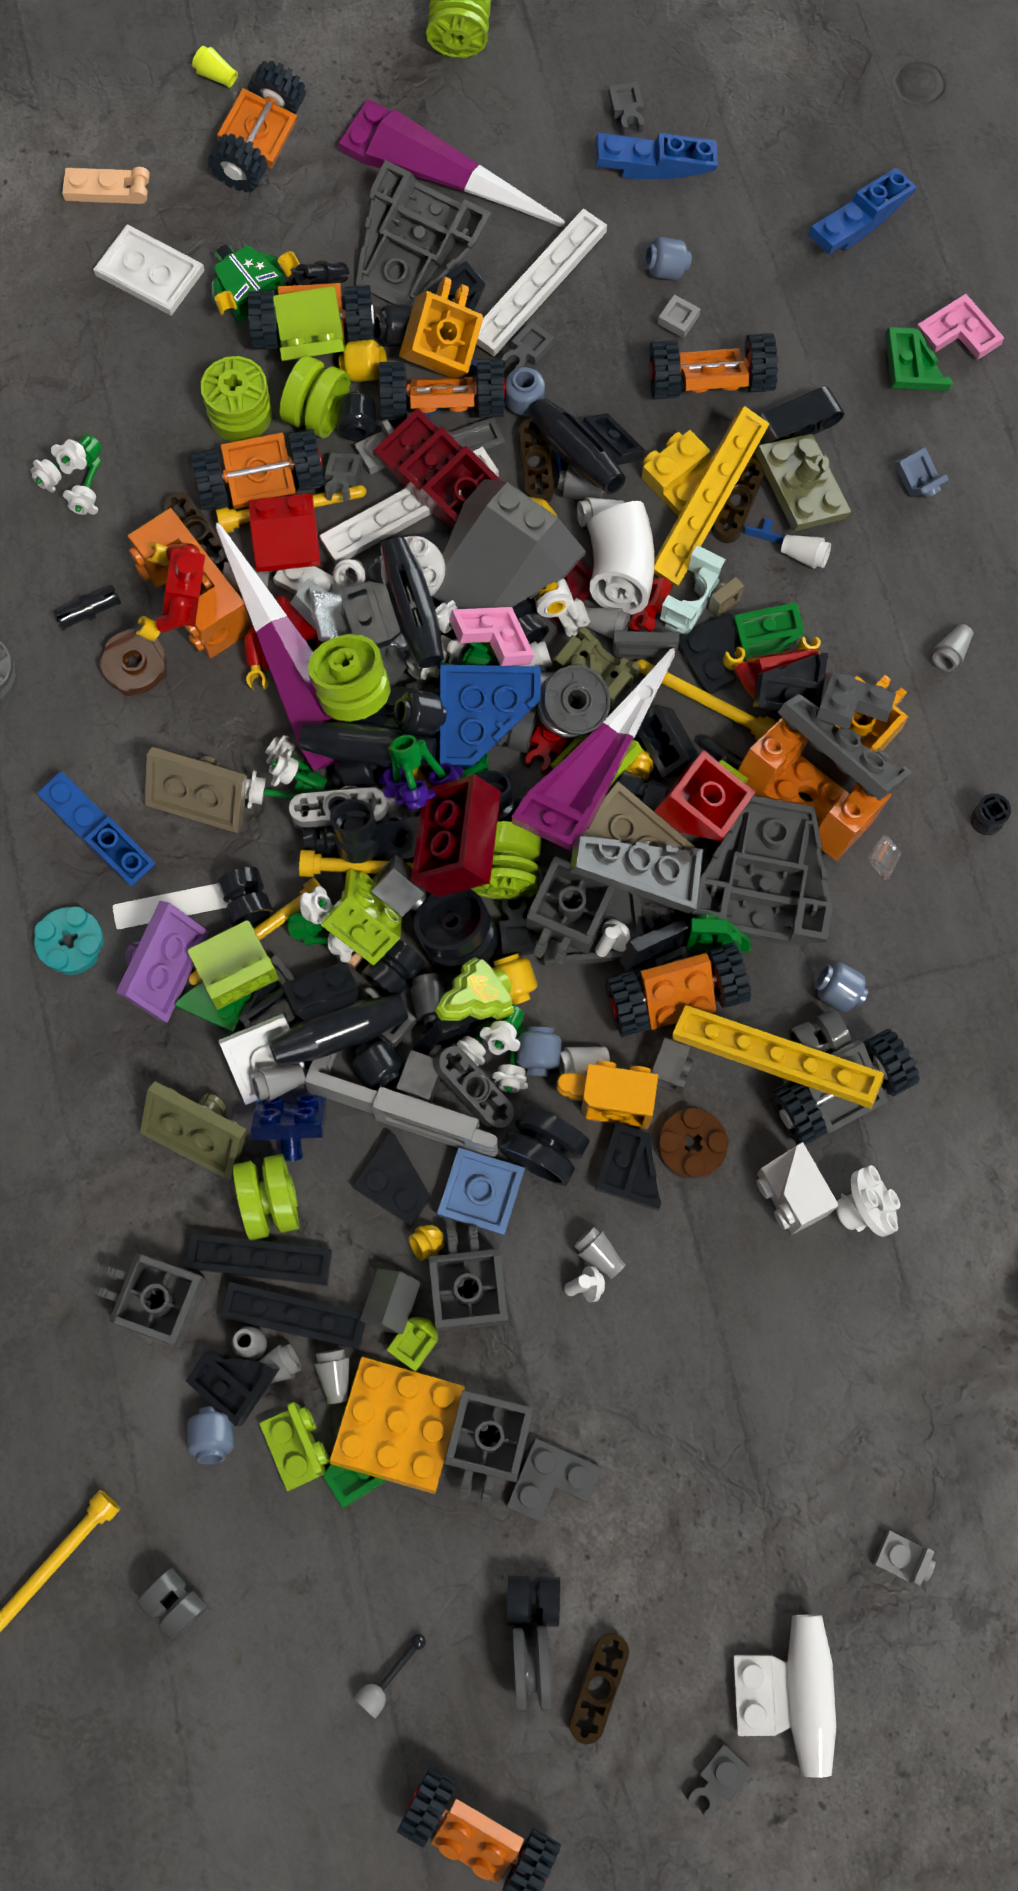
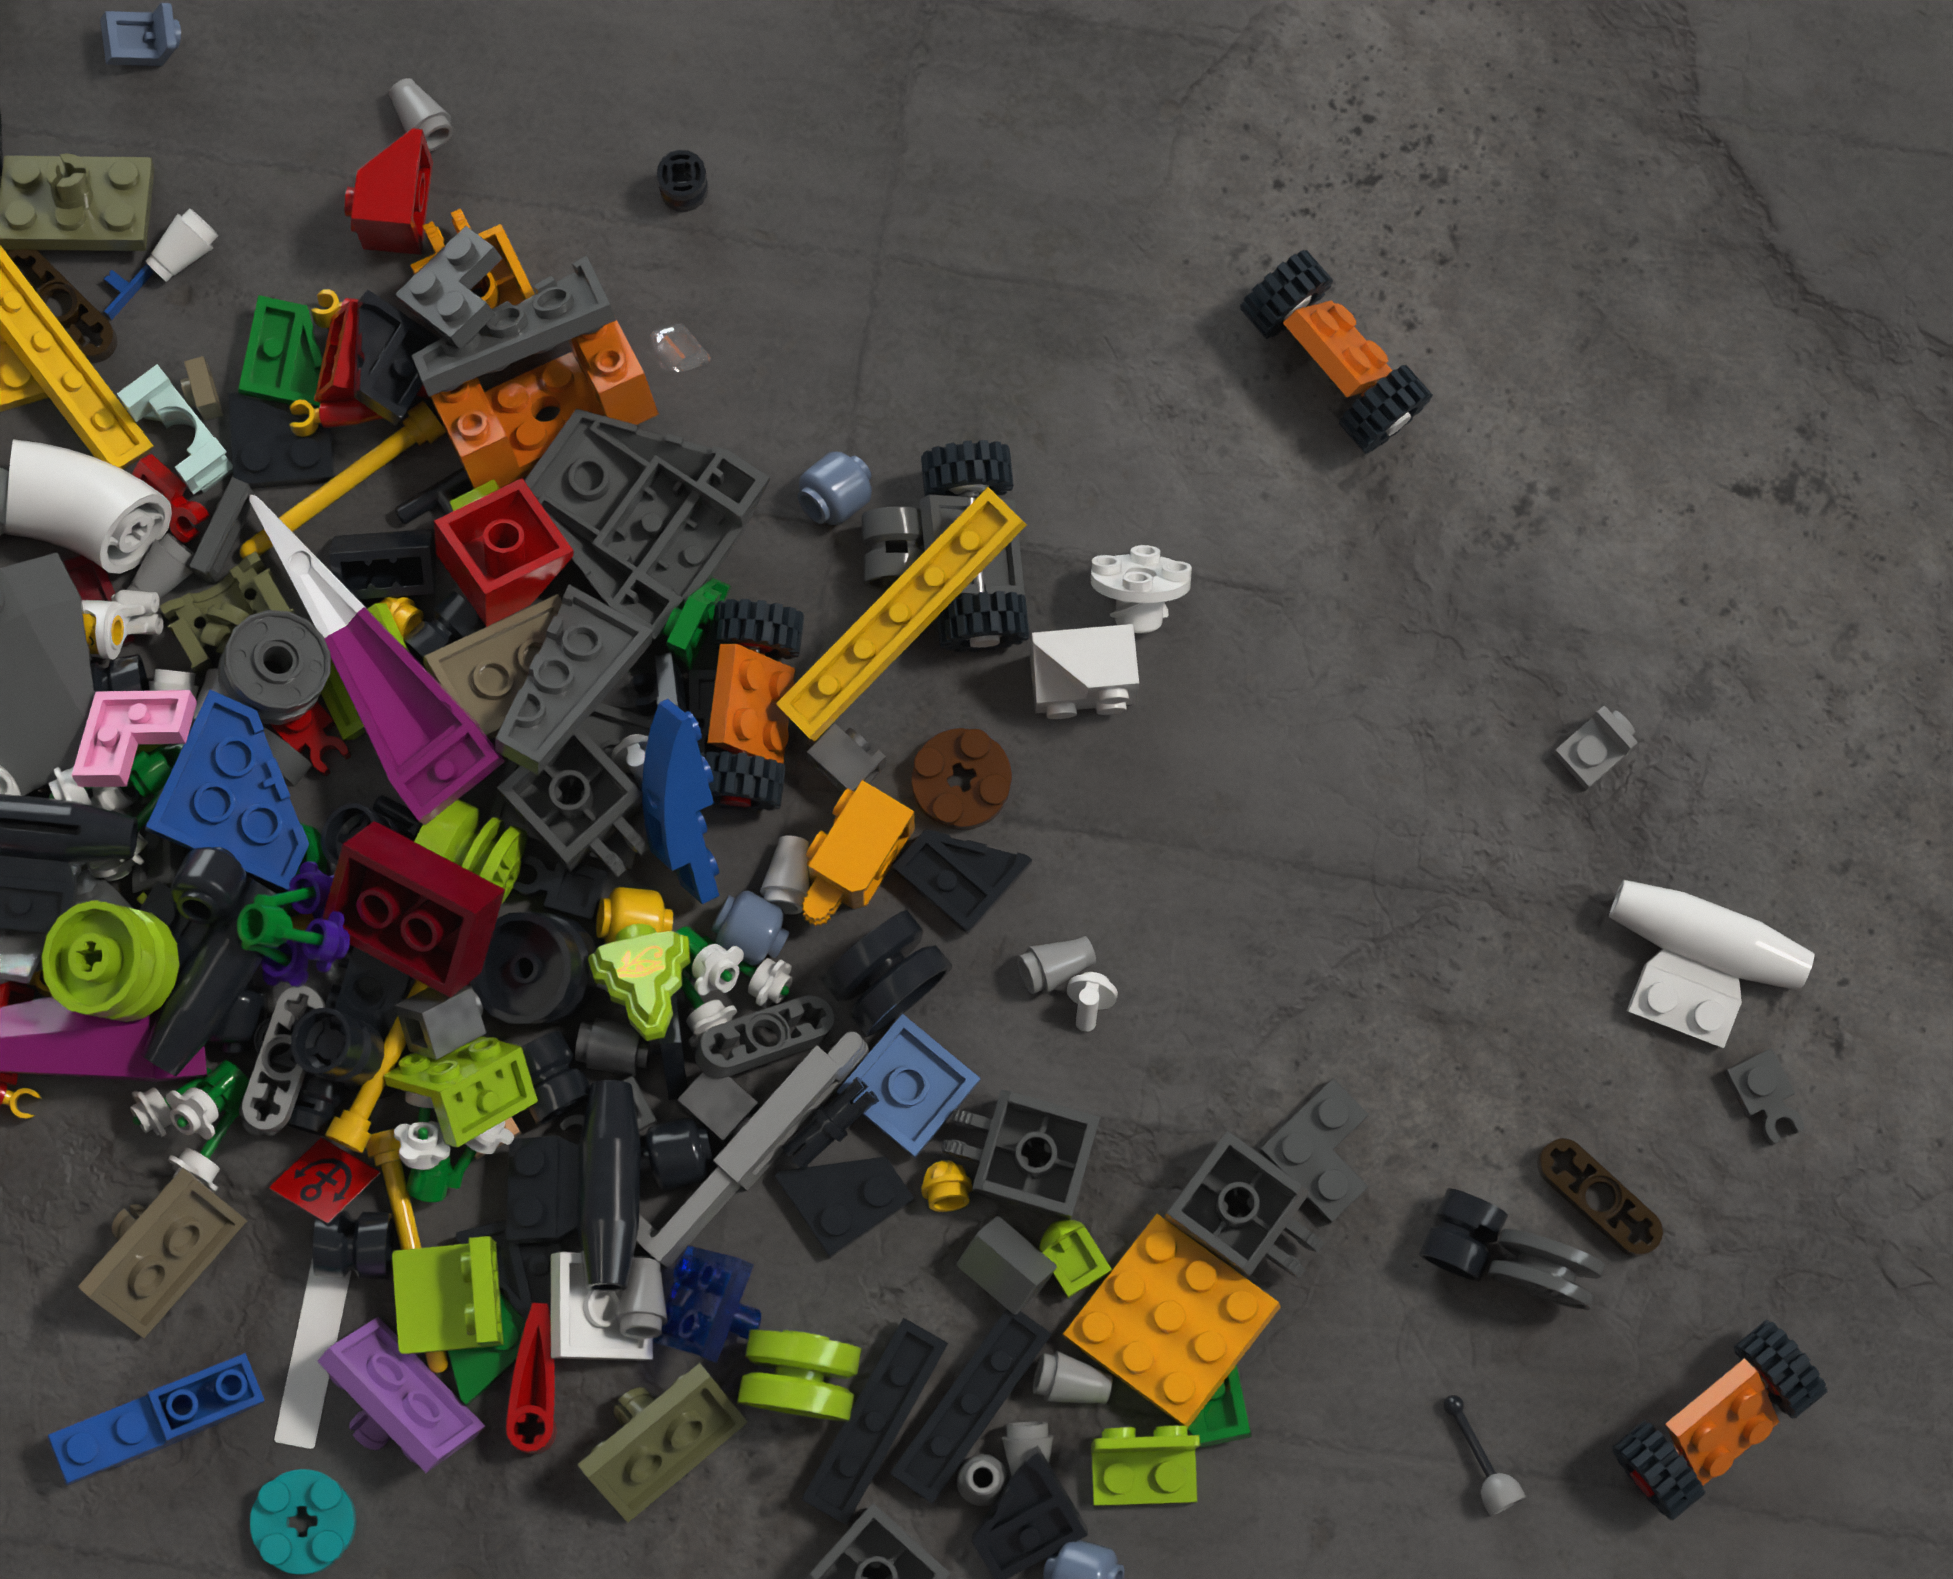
camera: 70 degrees left, 5 degrees up
(197, 1038) = (533, 1383): none -> red piece
(276, 864) = (324, 1180): none -> red sticker
(435, 1151) = (830, 1123): none -> black pin
(595, 965) = (673, 794): none -> blue slope
(896, 649) = (392, 196): none -> red slope

